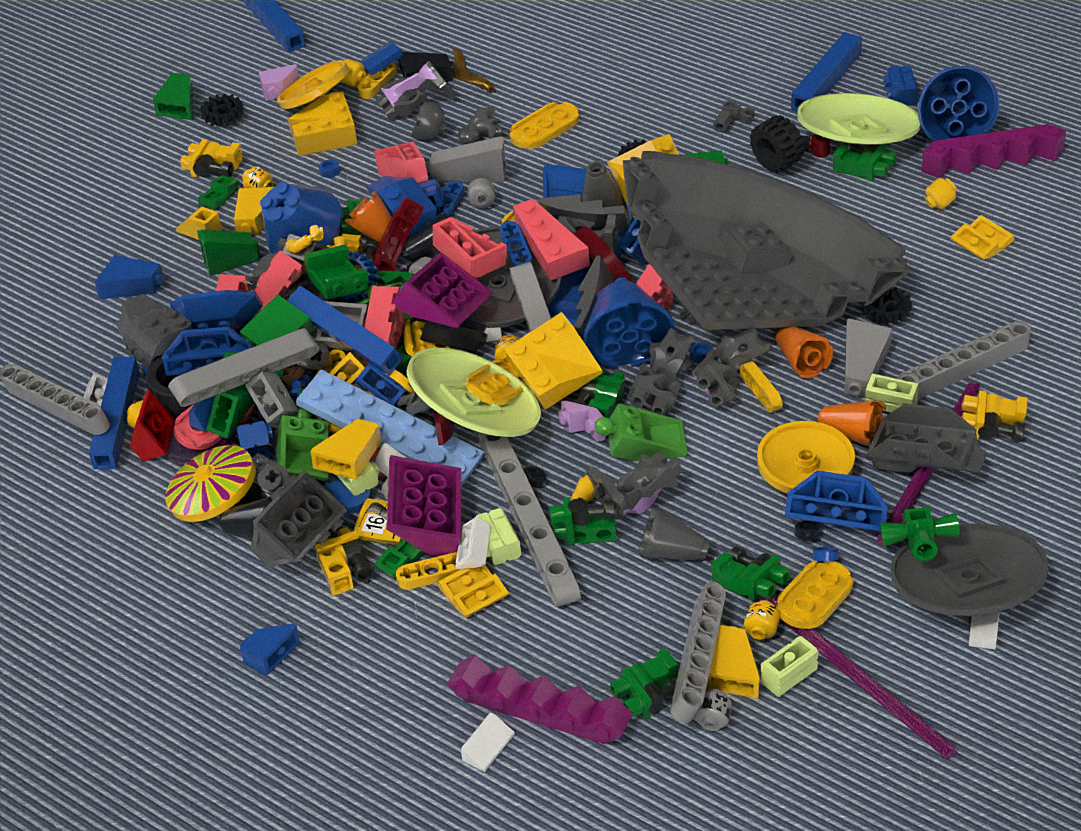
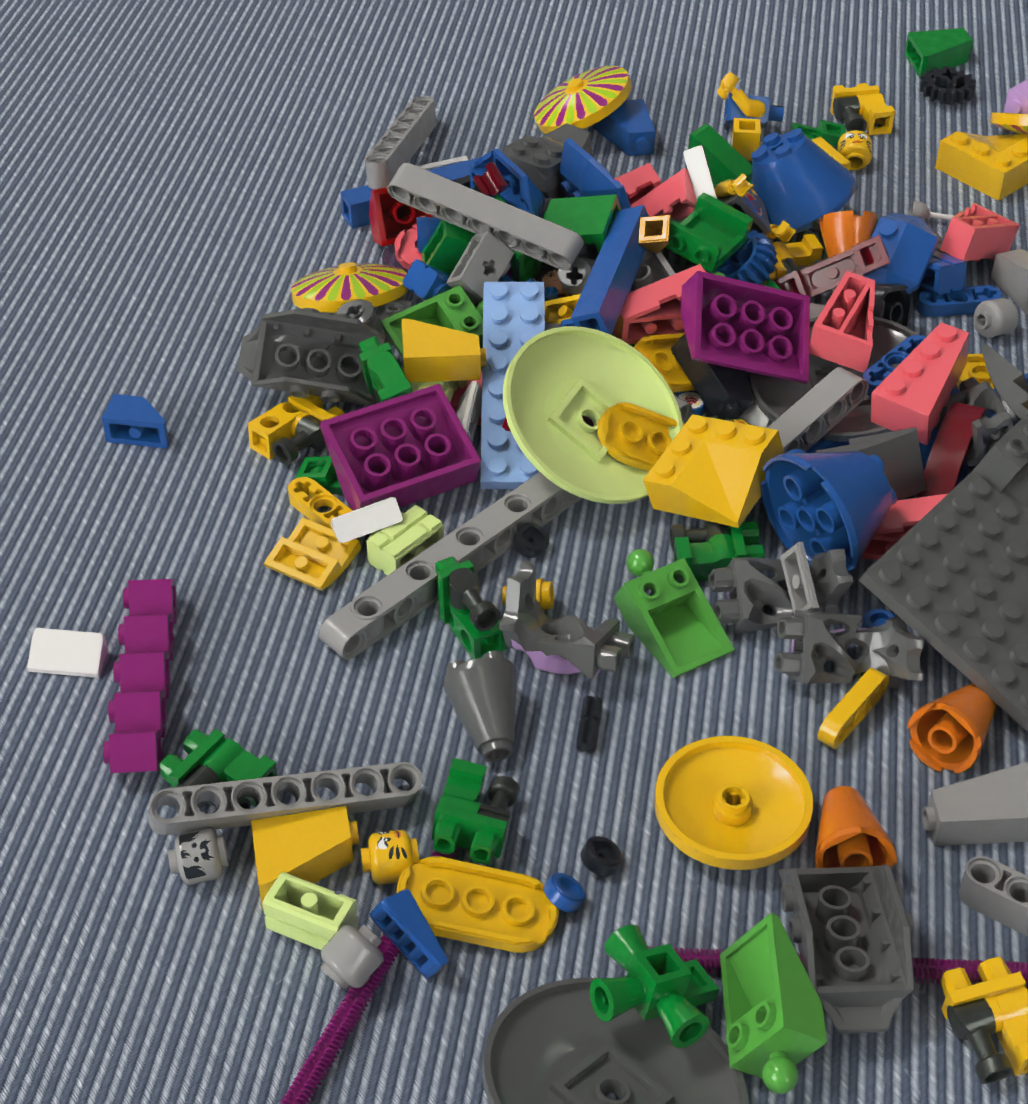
camera: 60 degrees right, 0 degrees up
(87, 286) = (584, 98): none -> dish
(172, 212) = (746, 106): none -> torso
(215, 349) = (490, 182): none -> dark red piece
(288, 245) = (699, 171): none -> white slope
(328, 291) = (654, 232): none -> pearl gold slope
(329, 168) = (932, 194): blue tile -> none
(347, 181) = (921, 210): none -> light grey hinge
(356, 483) = (382, 370): none -> green hips
(579, 418) = (658, 539): lavender slope -> none
(672, 360) = (799, 579): none -> light grey slope
(709, 505) = (589, 724): none -> black piece
(819, 615) = (410, 932): none -> blue slope
(833, 653) = (352, 956): none -> light grey head
(837, 500) = (653, 860): blue wedge -> none
(891, 391) = (939, 864): yellowish green brick -> none
(946, 489) = (769, 1006): none -> bright green slope

